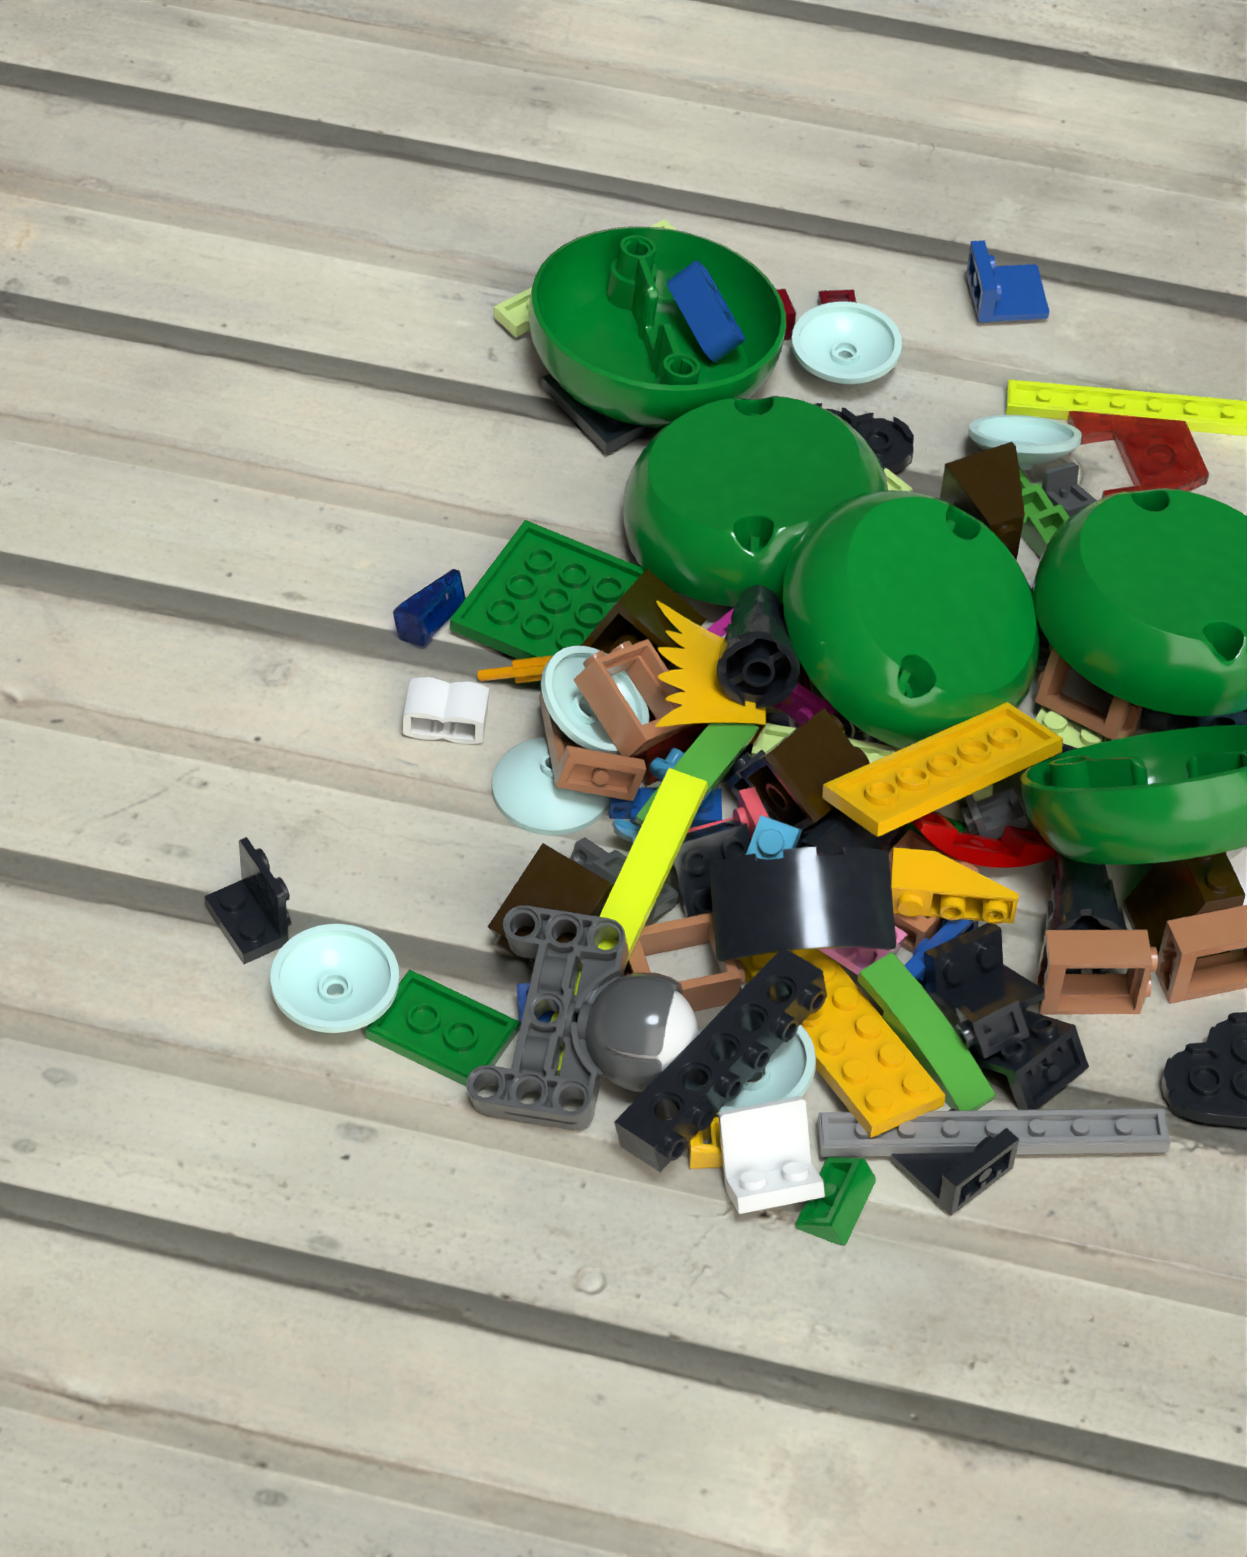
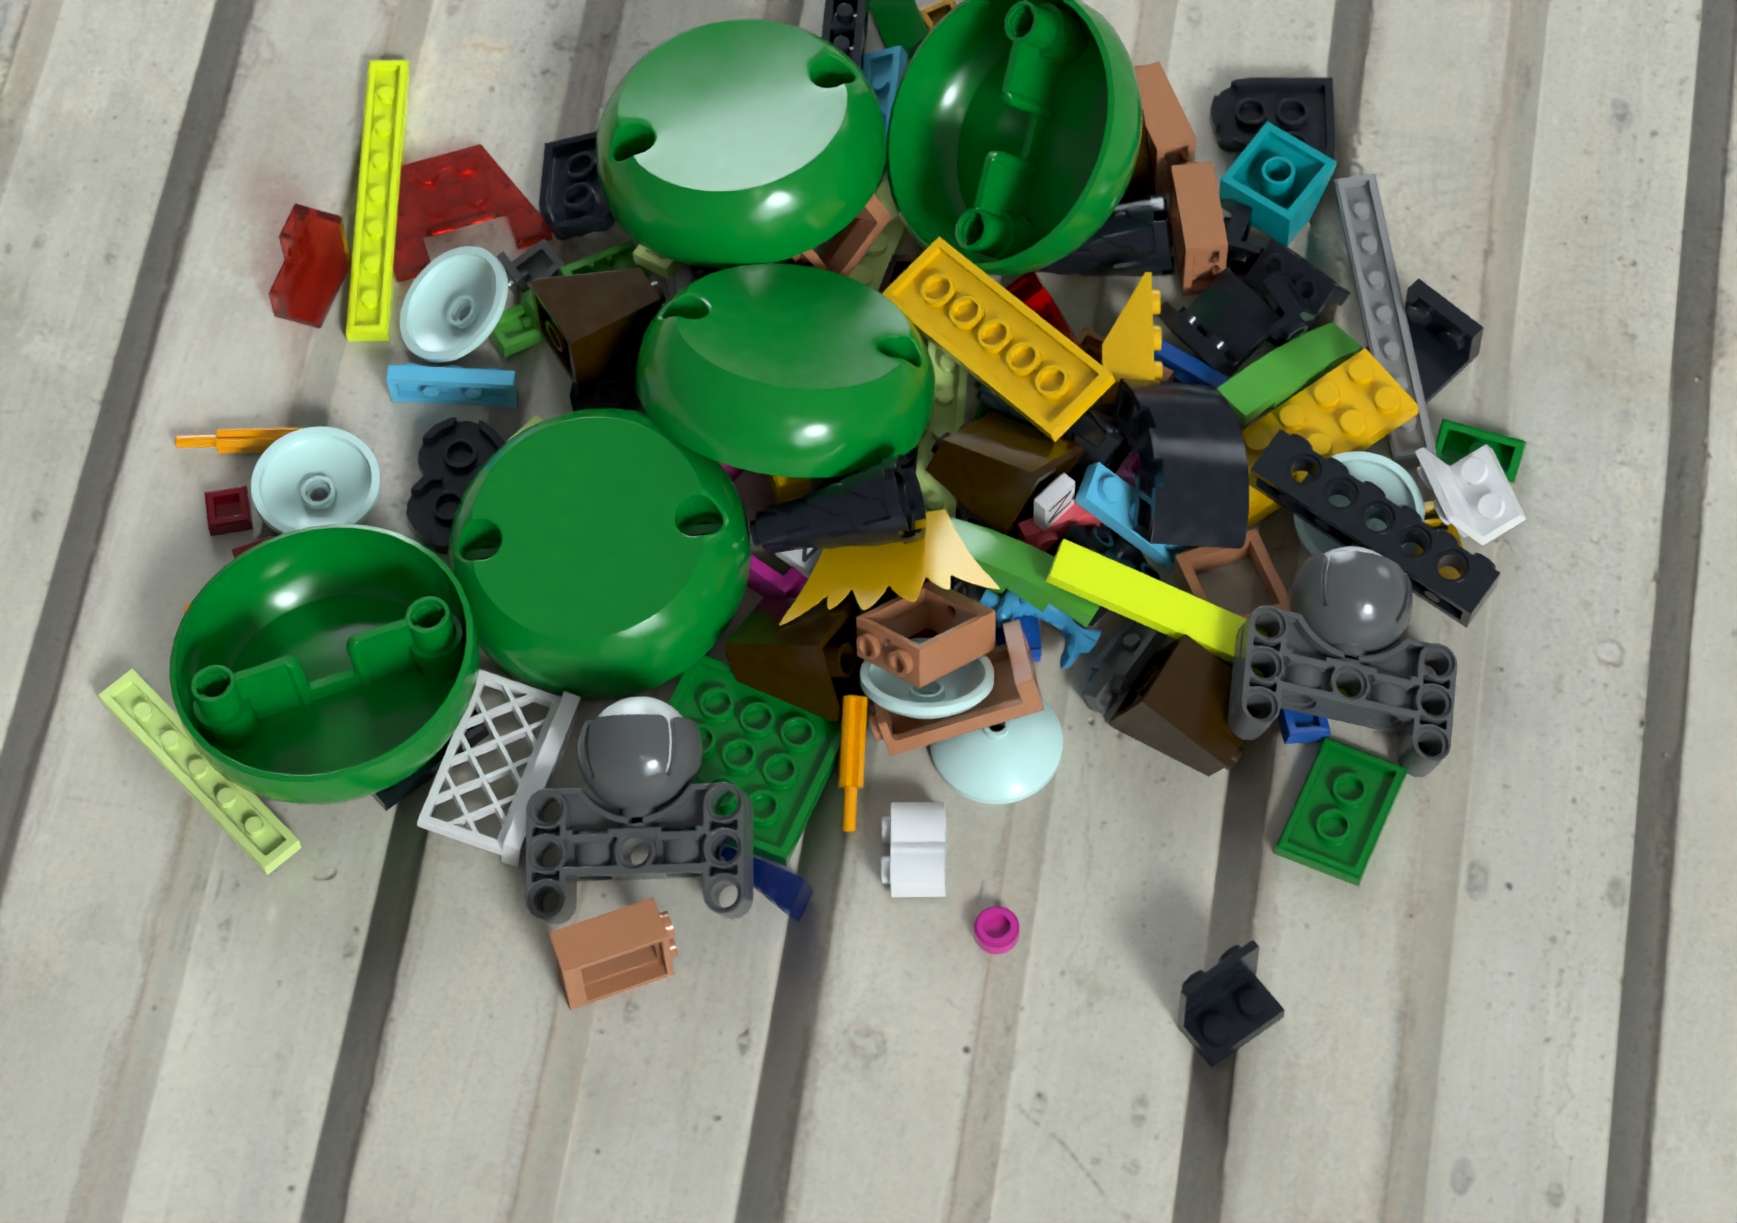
camera: 90 degrees left, 10 degrees up
(330, 962) = (1324, 881): light aqua dish -> none
(364, 765) = (996, 930): none -> dark pink tile
(372, 494) = (614, 952): none -> nougat window
(483, 497) = (640, 783): none -> dark grey beam
(554, 470) = (538, 767): none -> white fence
(705, 311) = (285, 623): blue beam -> none
(763, 798) = (1054, 501): none -> white tile
(905, 316) = (235, 439): none -> light orange axle
(950, 438) = (452, 385): none -> medium azure plate
(1004, 291) = (199, 339): blue bracket -> none
(1069, 354) = (312, 267): none -> clear red panel
(1093, 1016) = (1240, 253): none -> black bracket
(1147, 1043) = (1279, 180): none -> teal slope

